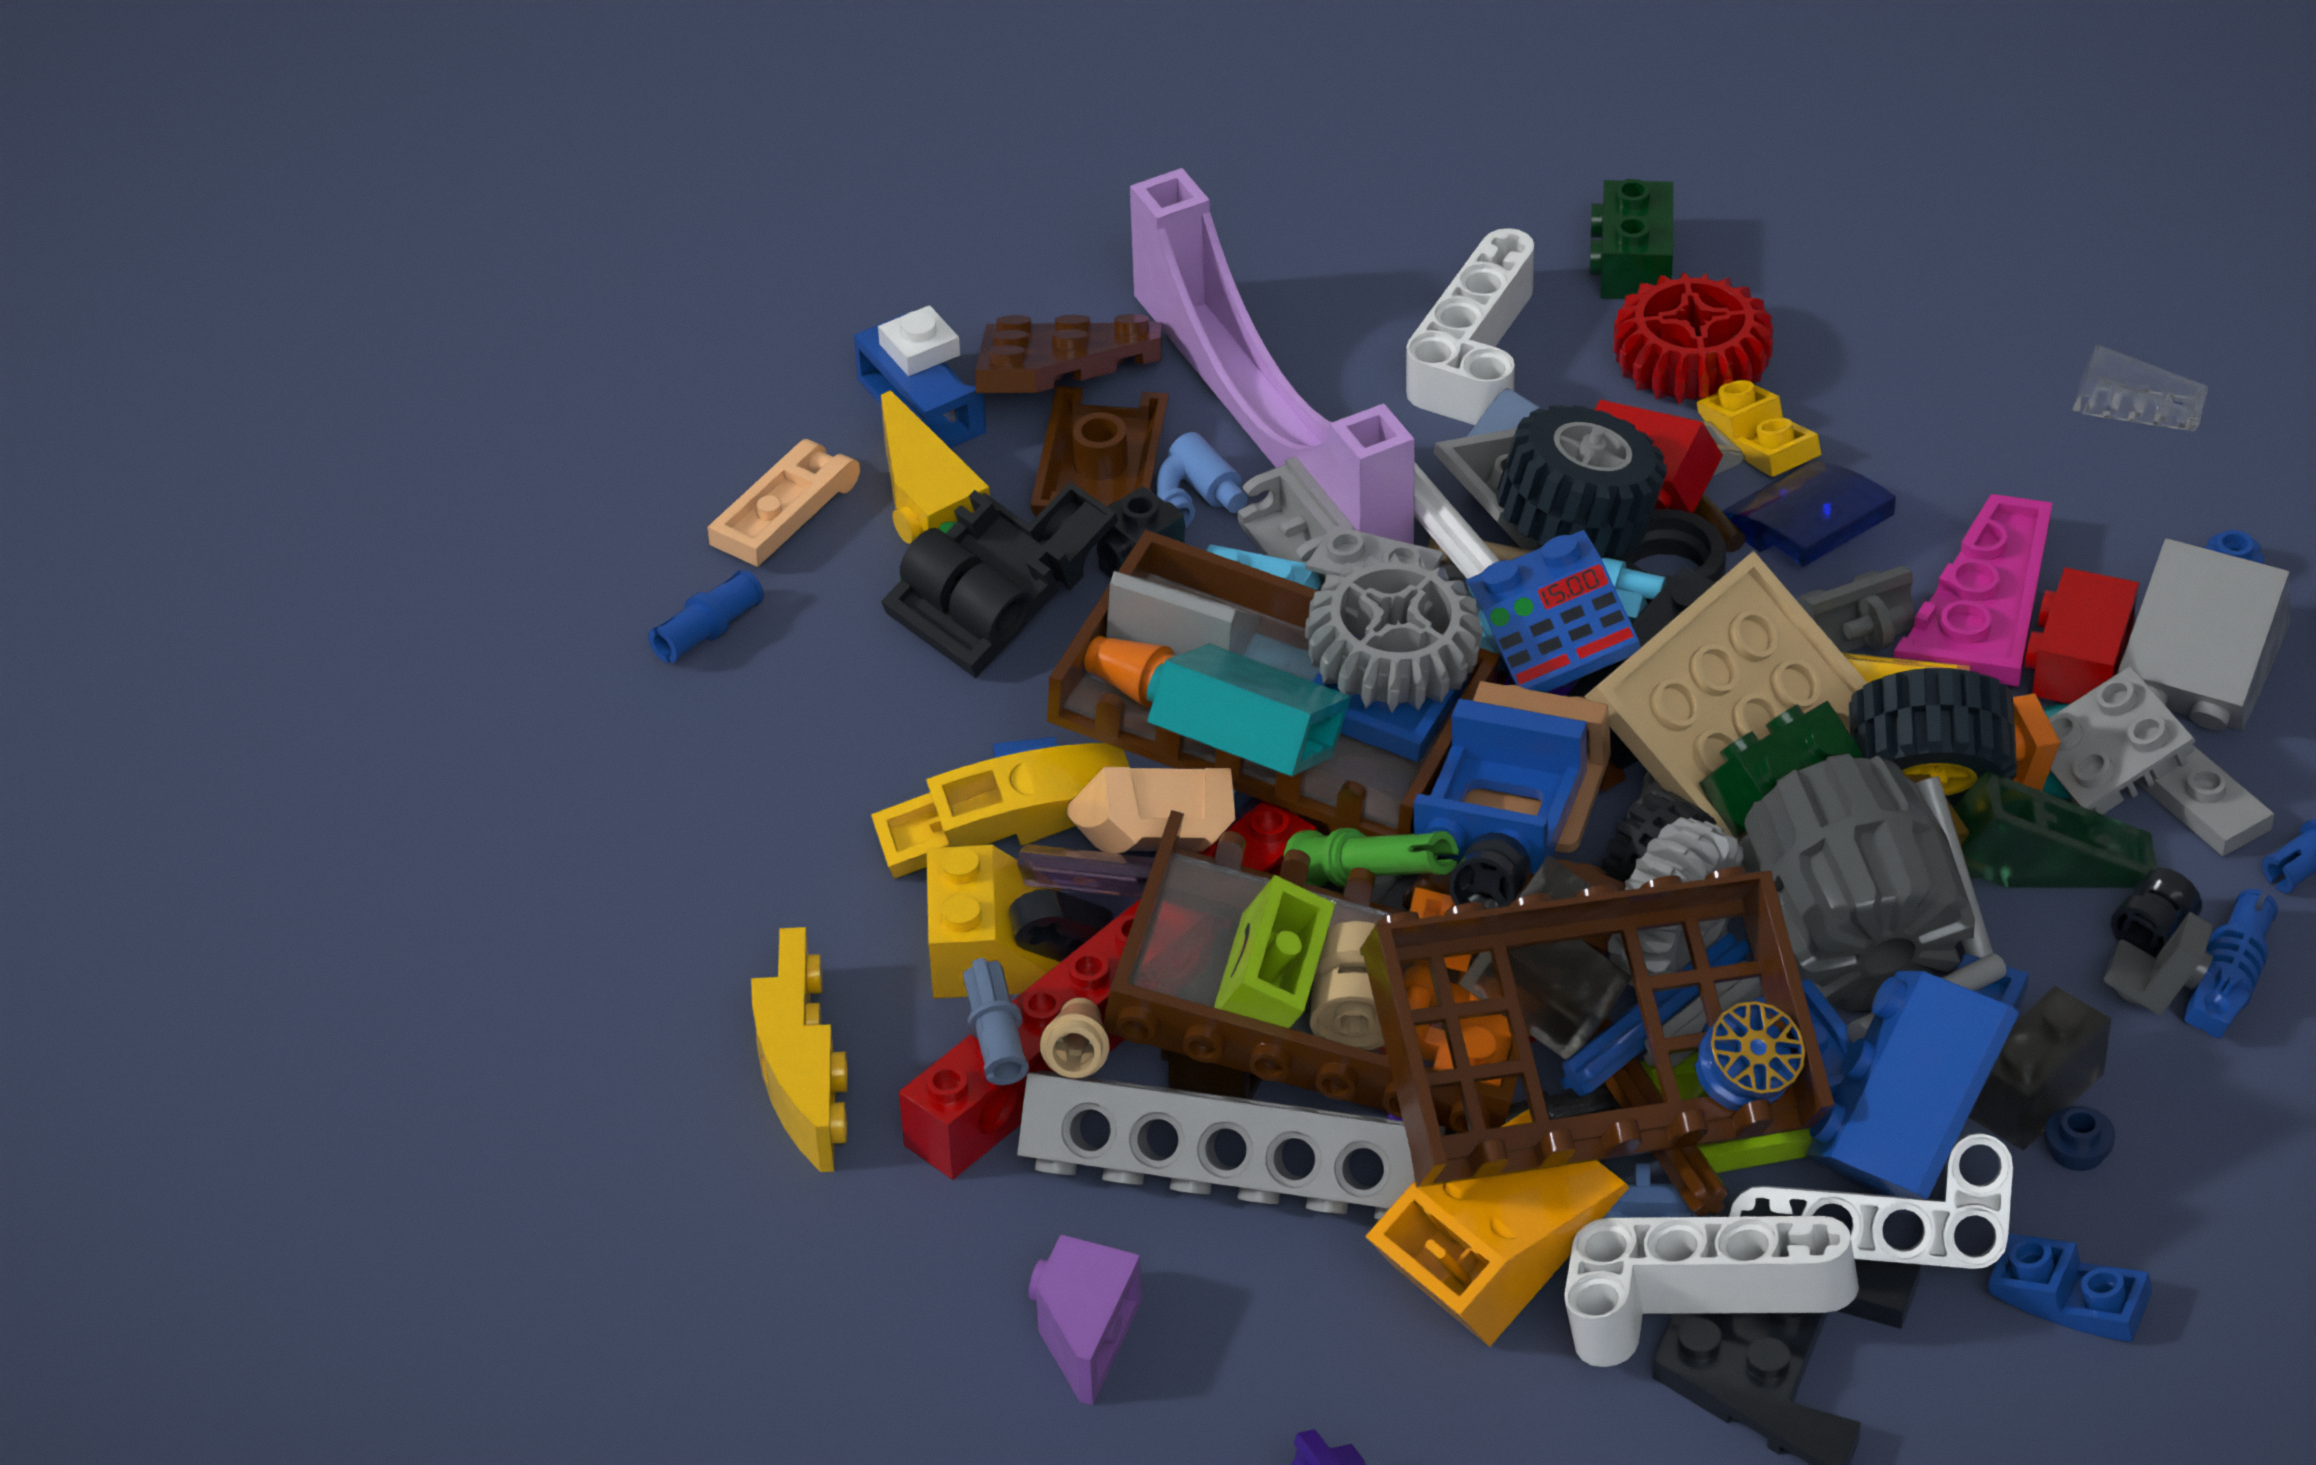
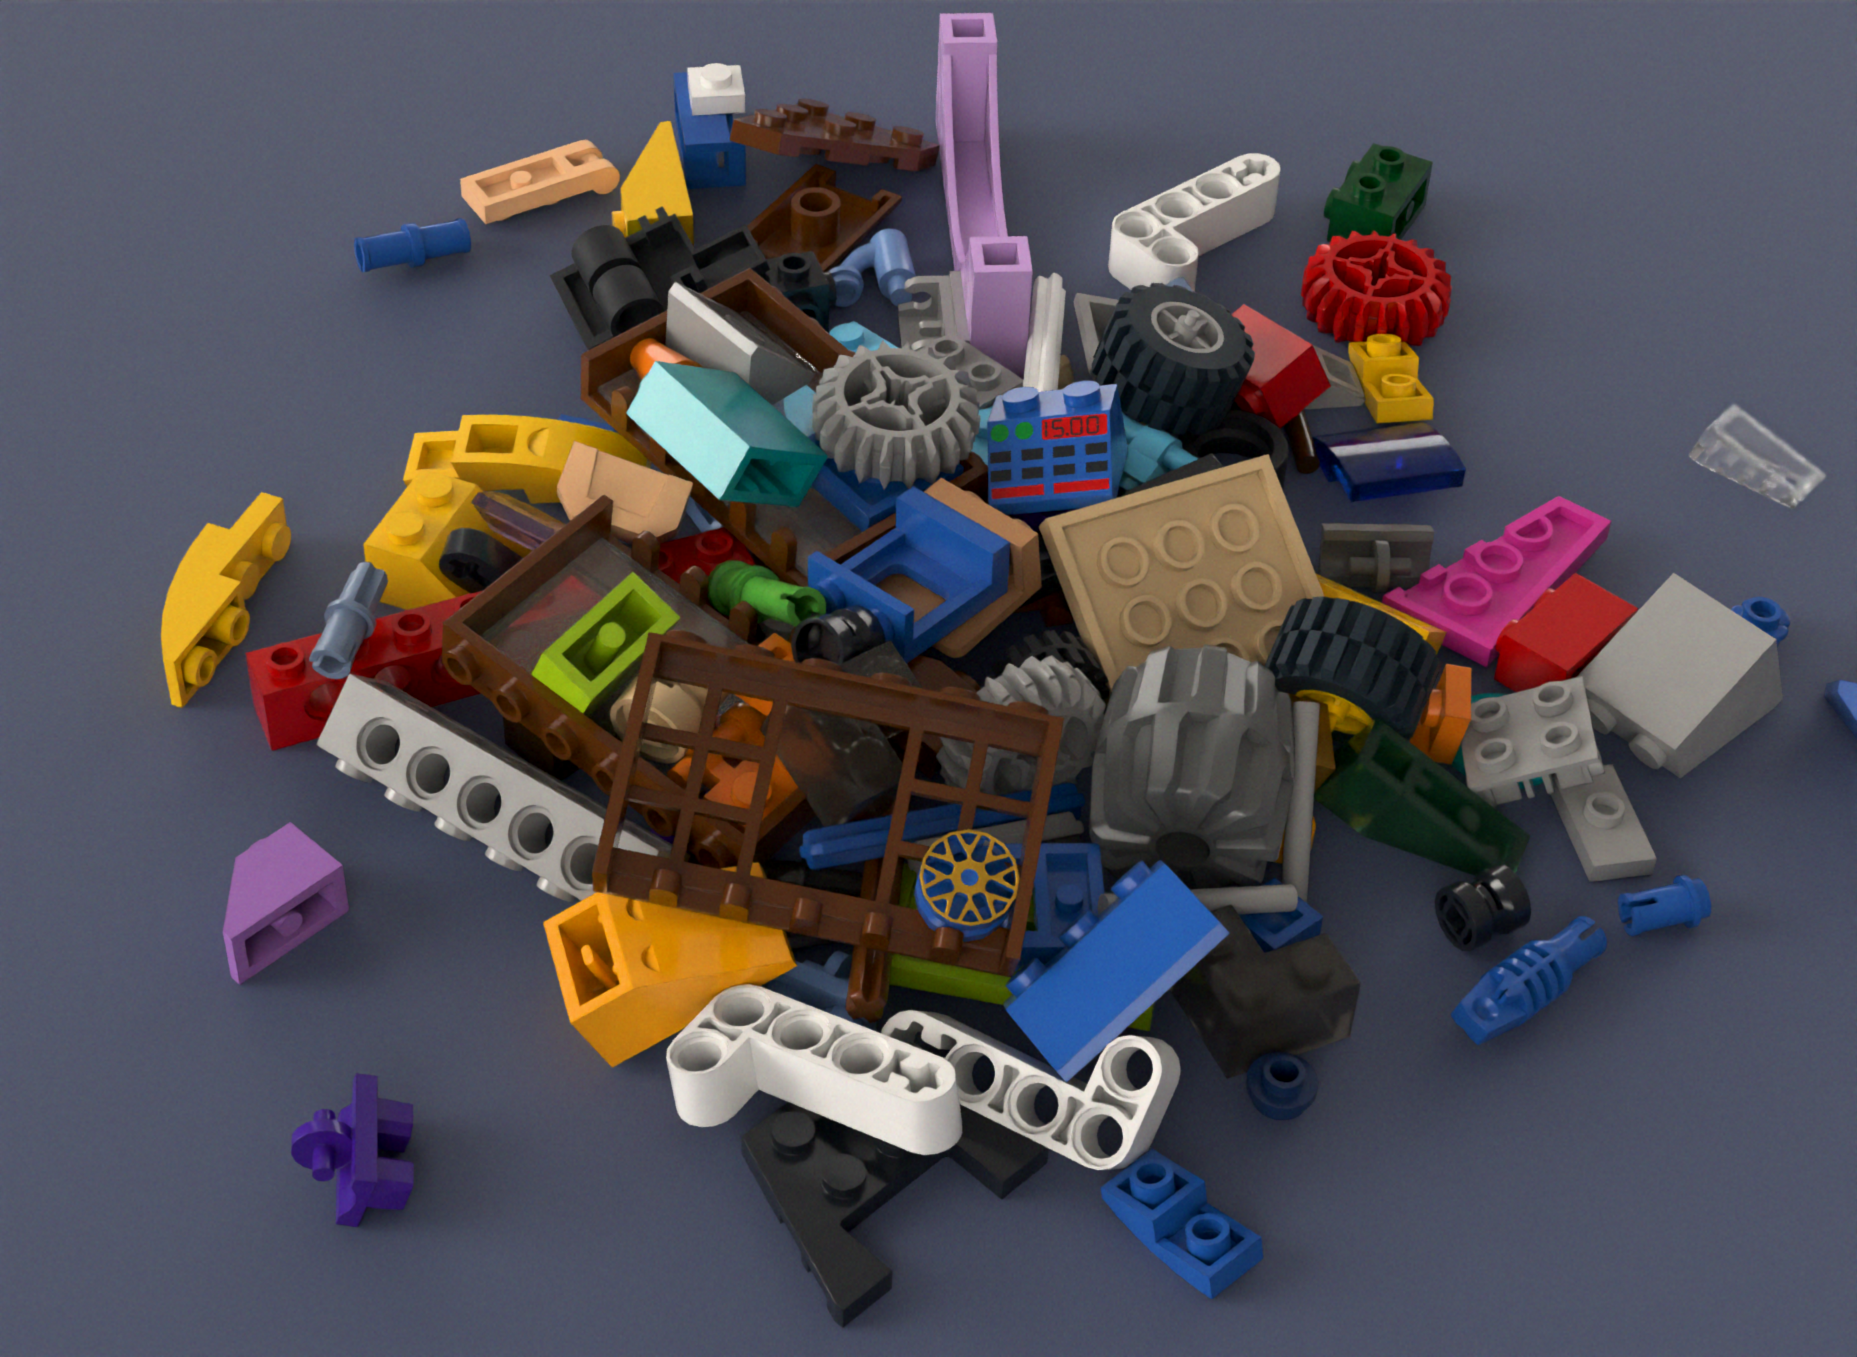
camera: 20 degrees right, 0 degrees up
(1075, 1040) = (402, 658): tan cone -> none
(1756, 765) = (1209, 623): dark green brick -> none
(2158, 980) = (1441, 964): dark grey bracket -> none

